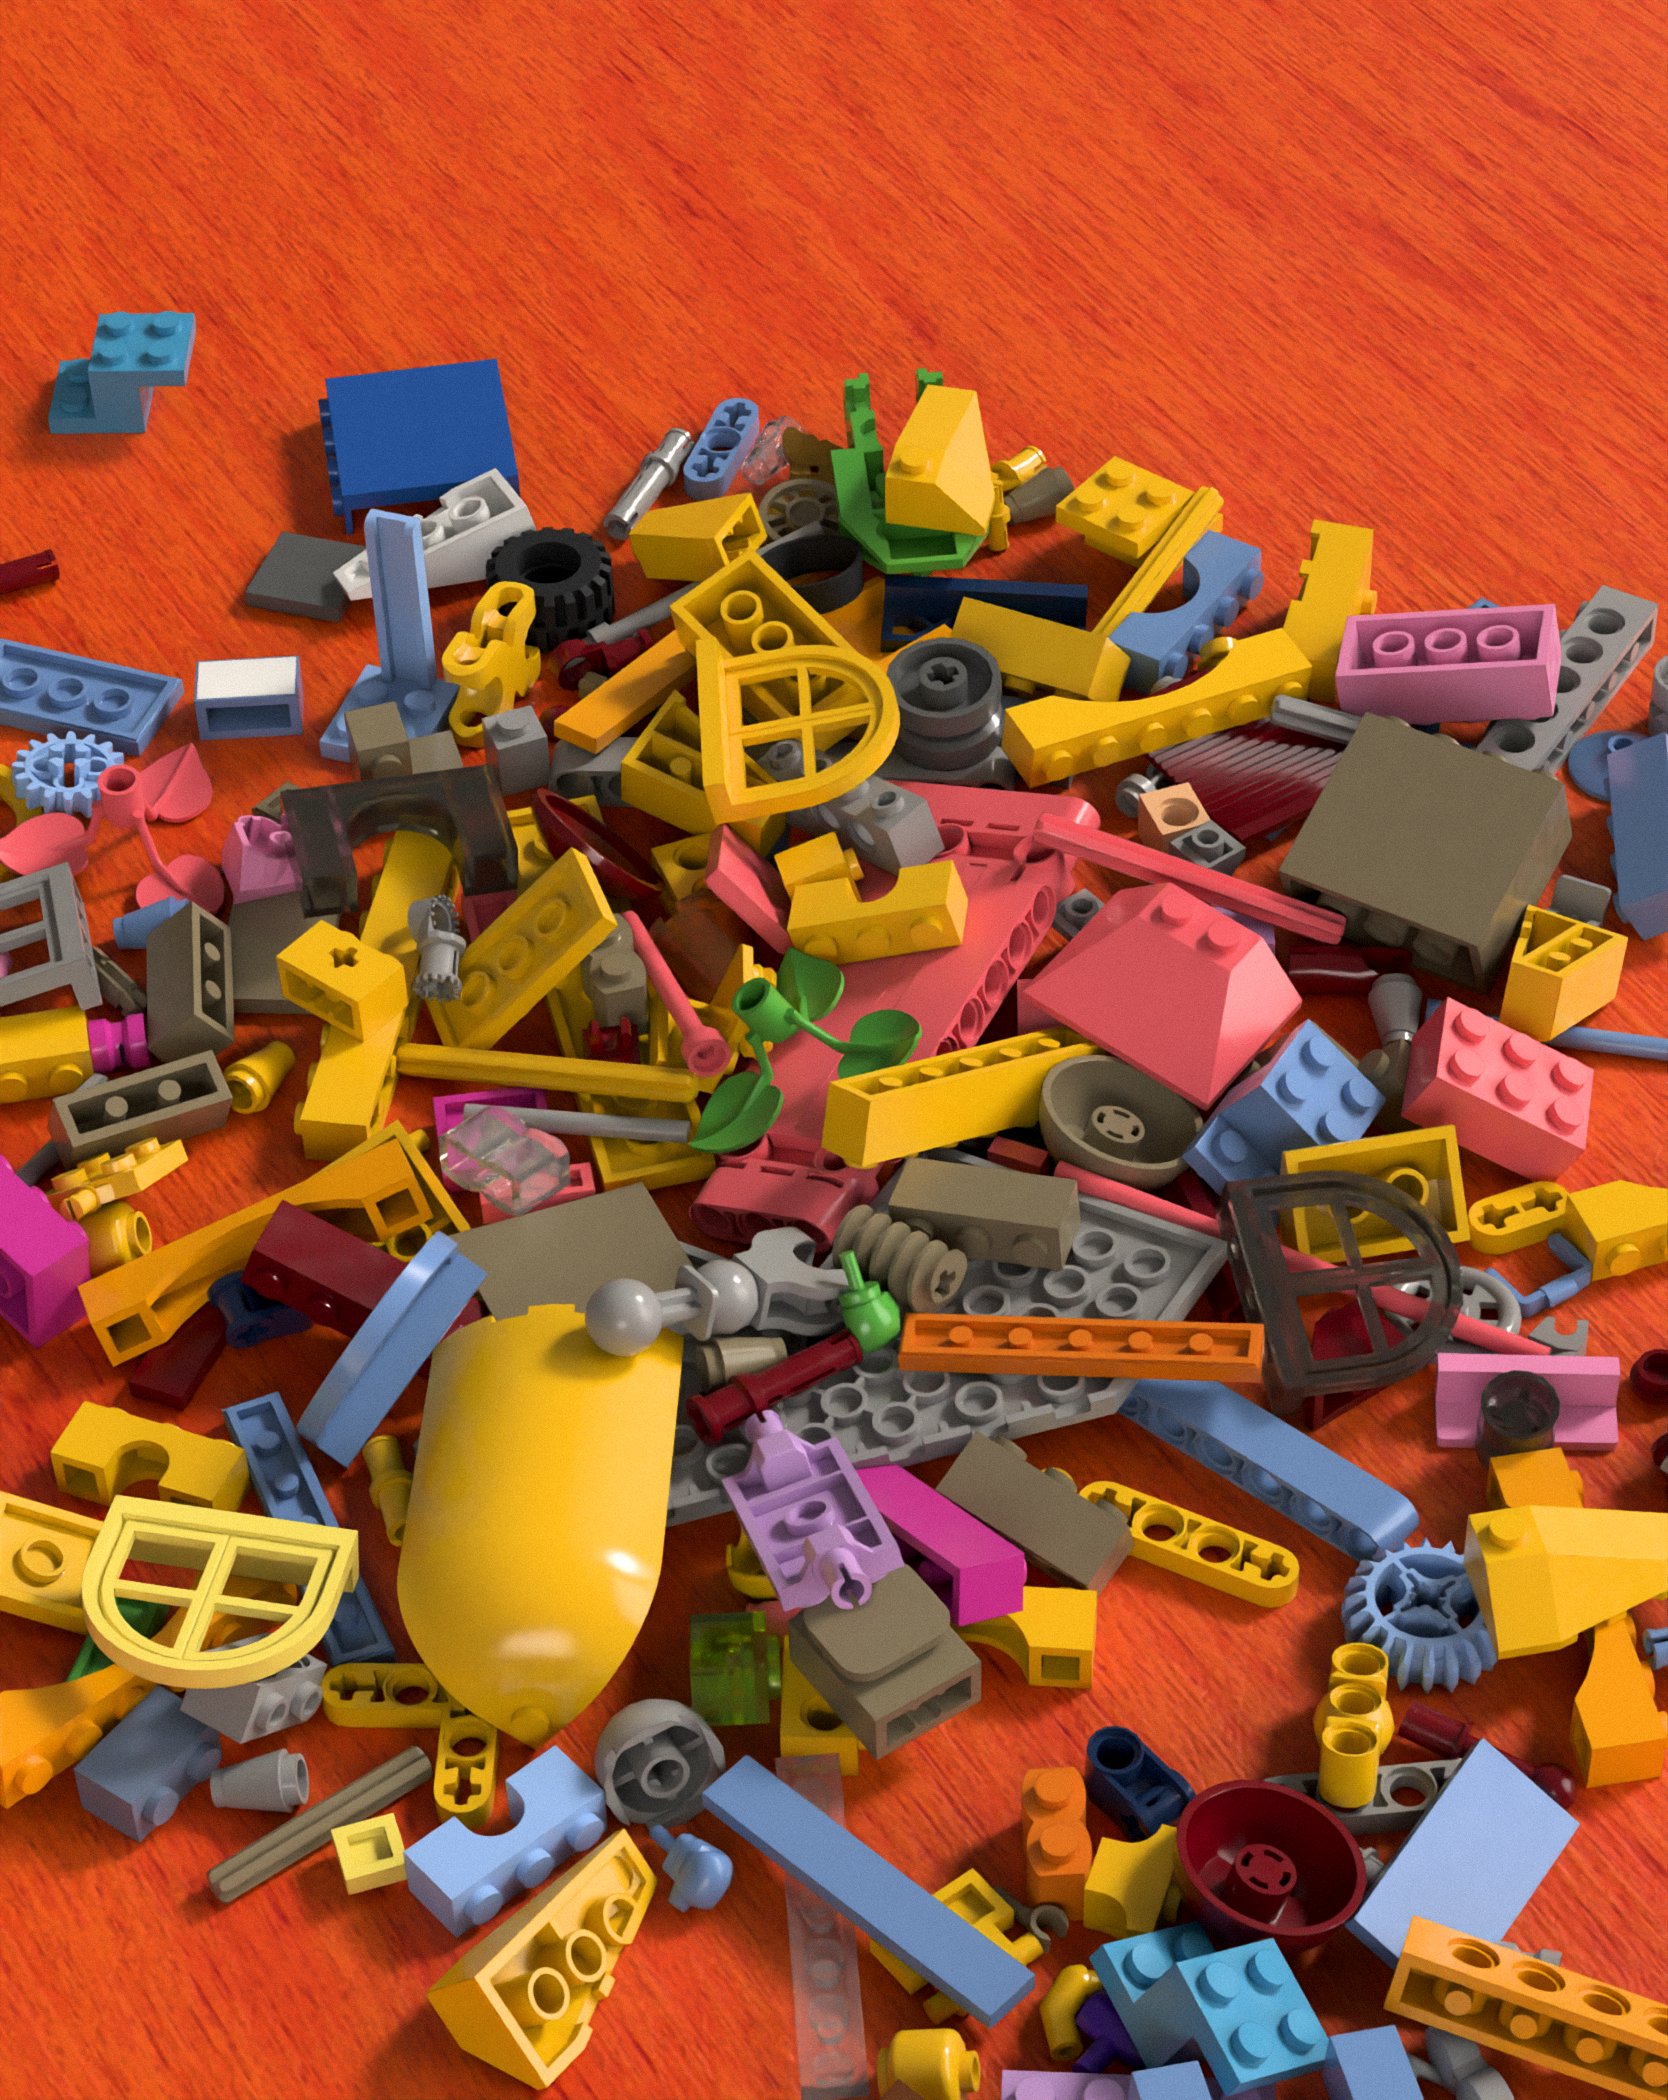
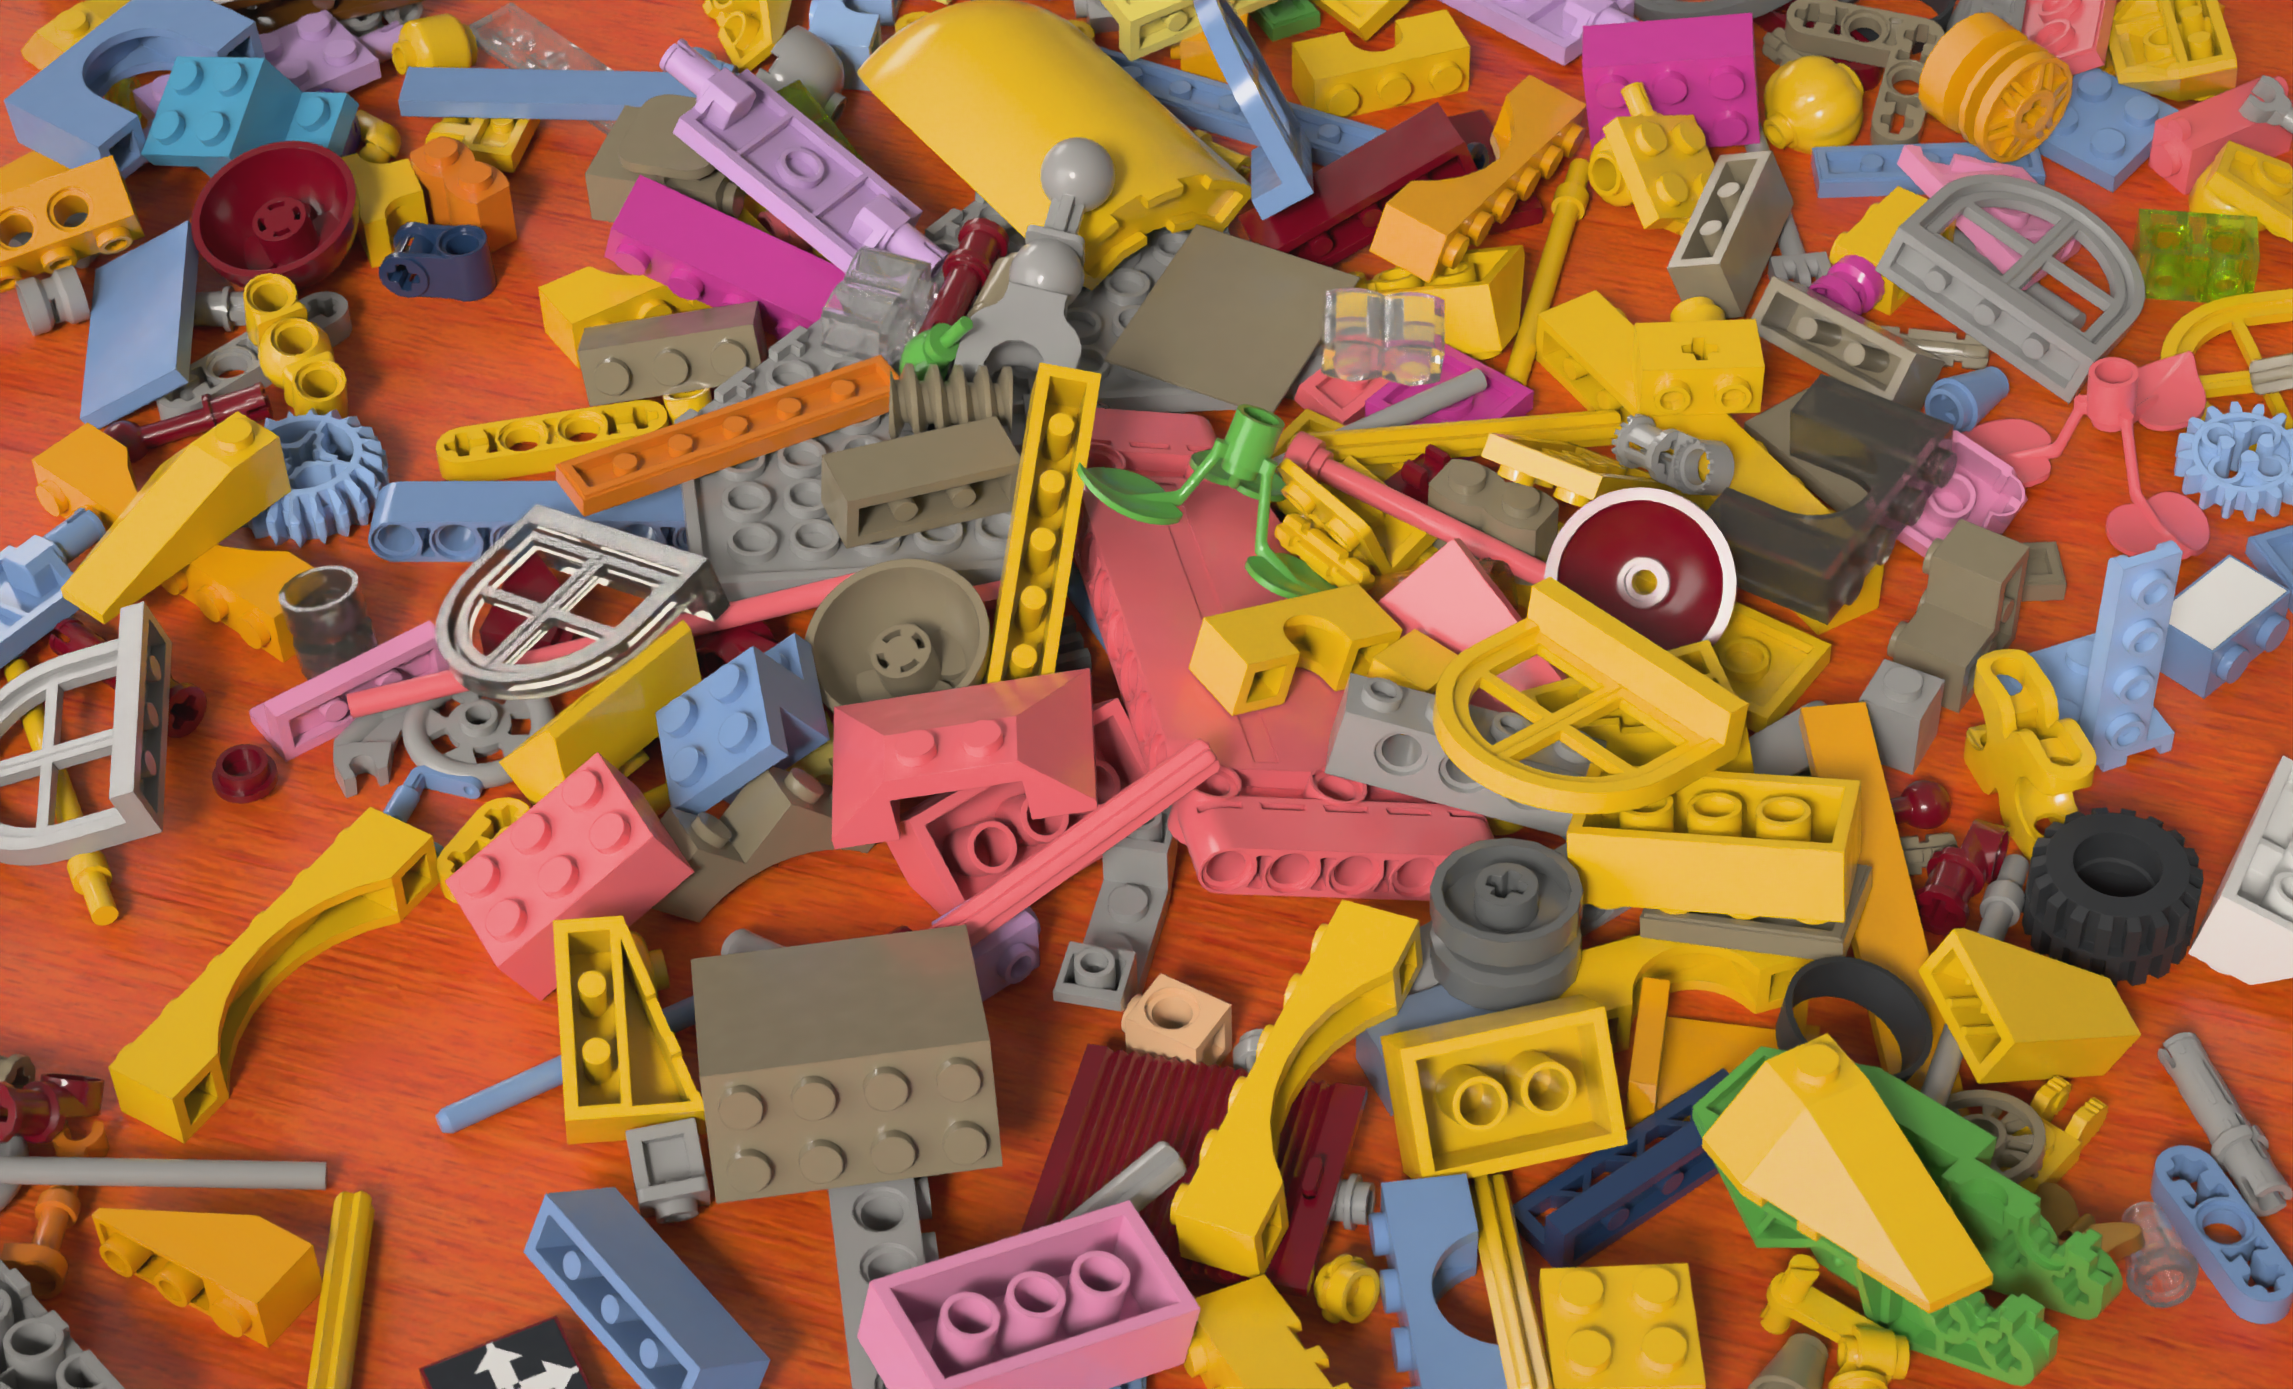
camera: 140 degrees right, 0 degrees up
(861, 1392) = (877, 305): none -> clear brick

